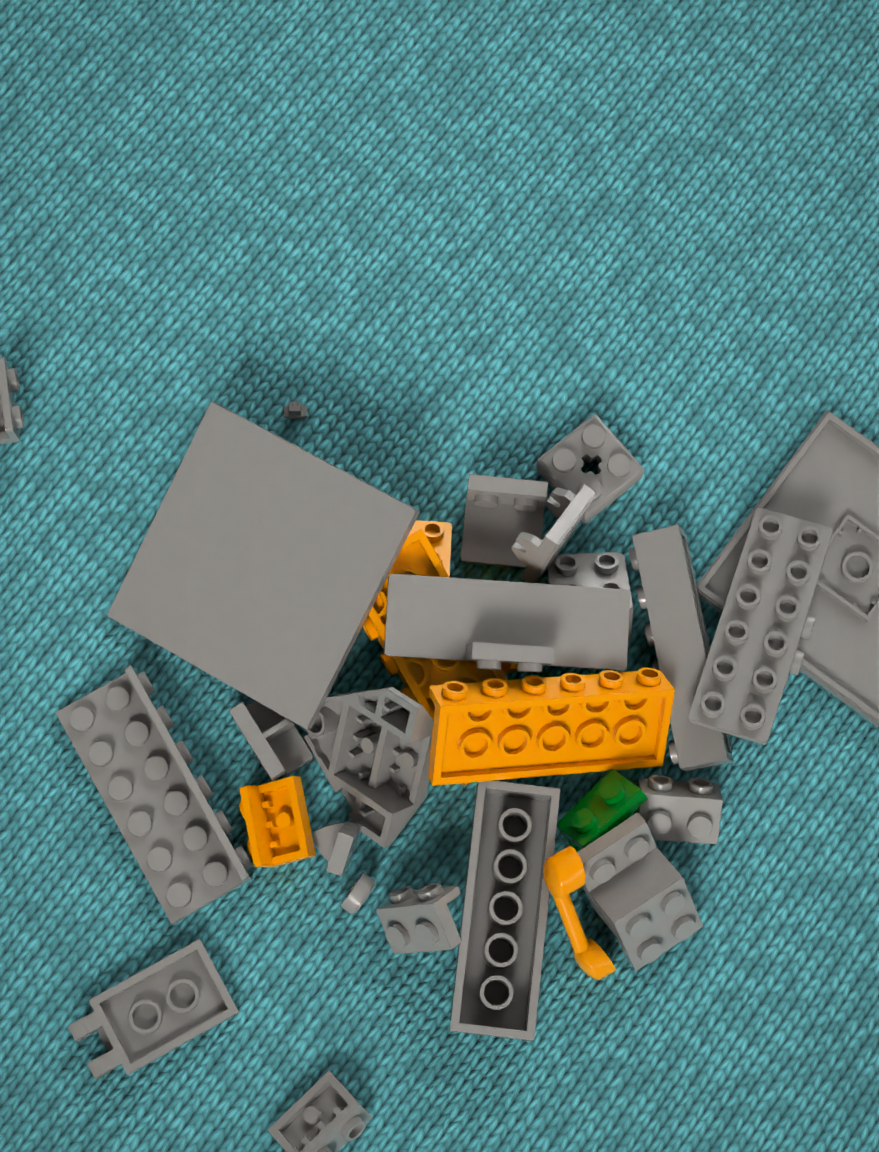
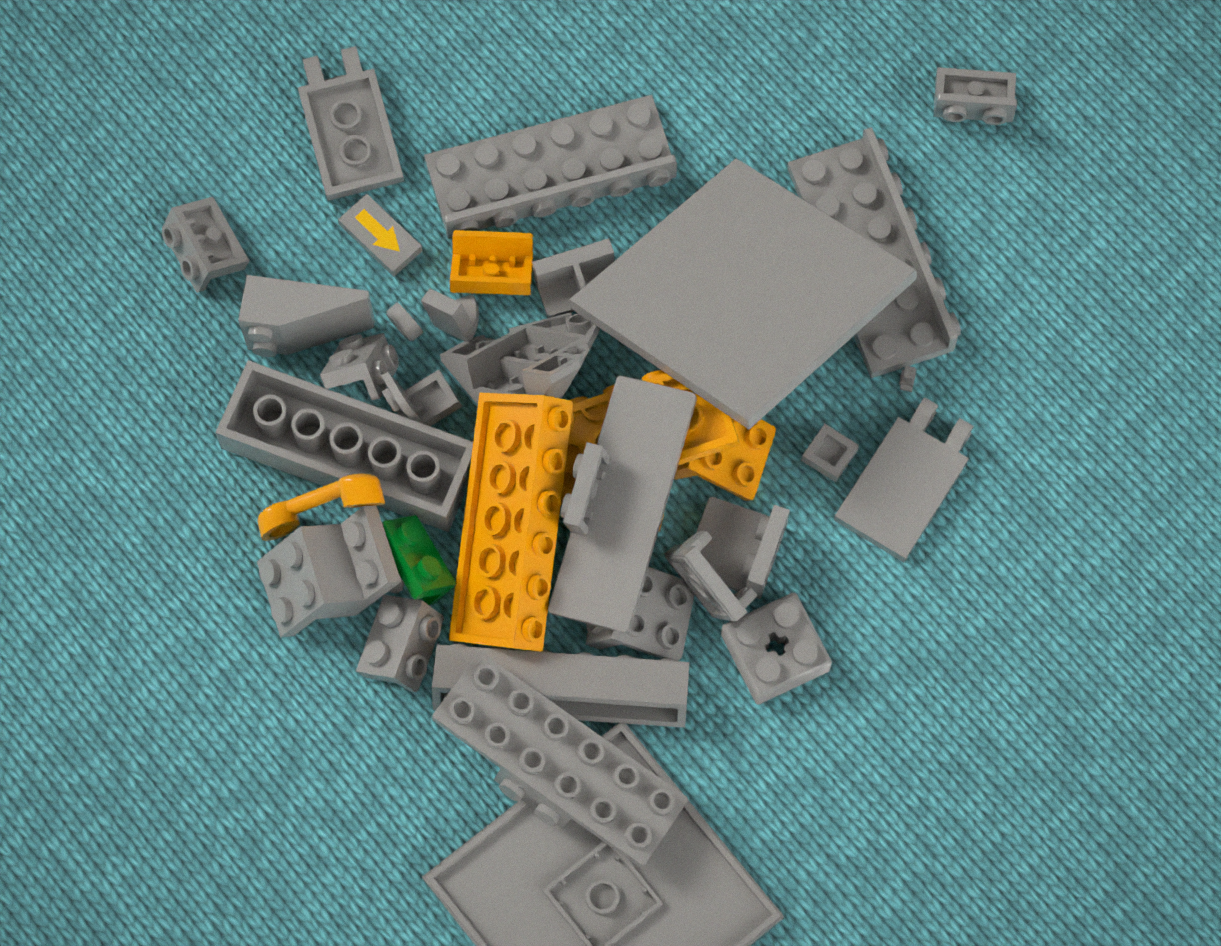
camera: 110 degrees right, 5 degrees down
(124, 488) = (862, 194): none -> light grey bracket
(267, 946) = (380, 235): none -> light grey tile
(388, 1007) = (299, 315): none -> light grey slope
(390, 461) = (830, 452): none -> light grey plate
(399, 391) = (905, 483): none -> light grey tile
(437, 851) = (423, 402): none -> light grey bracket

